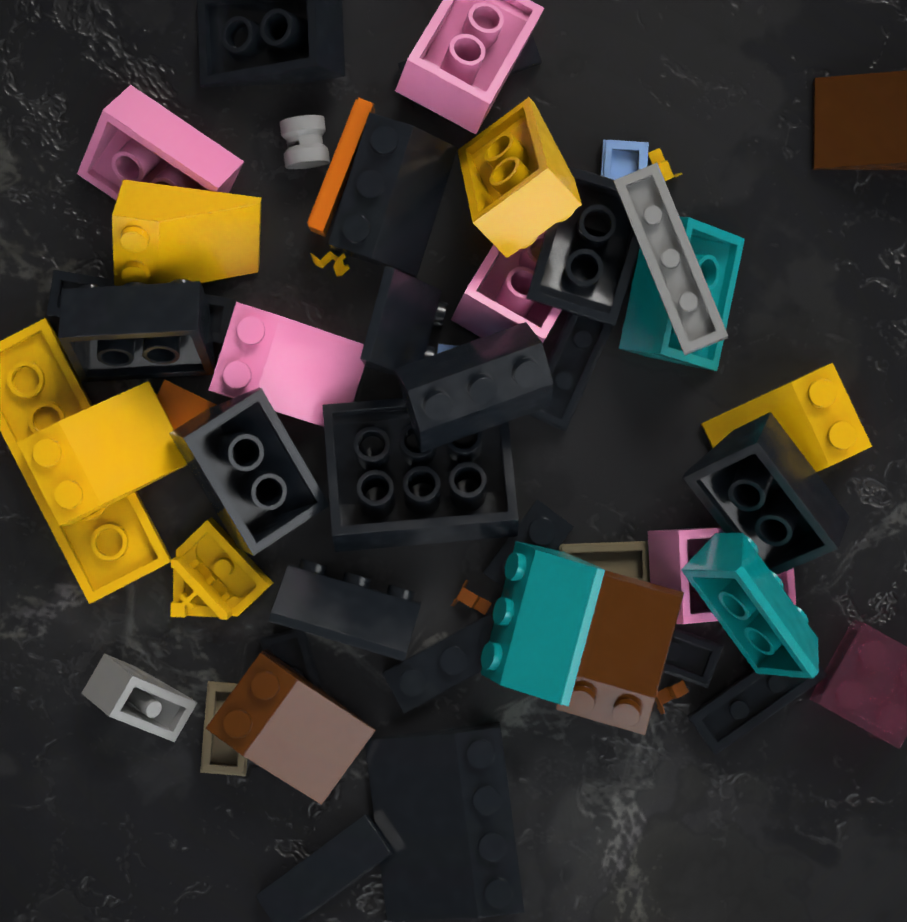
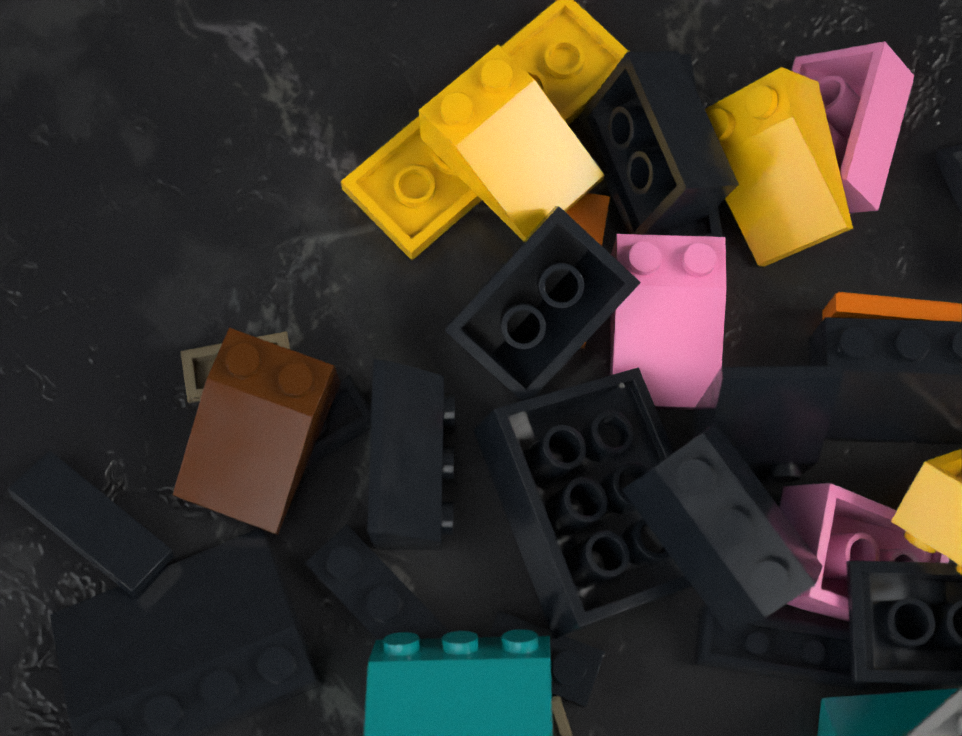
camera: 70 degrees right, 15 degrees down
(138, 698) = (247, 261): light grey slope -> none
(214, 576) = (408, 307): yellow slope -> none
(304, 142) = (926, 269): light grey wheel -> none
(339, 267) = (800, 343): yellow piece -> none
(472, 600) = (461, 606): dark orange piece -> none

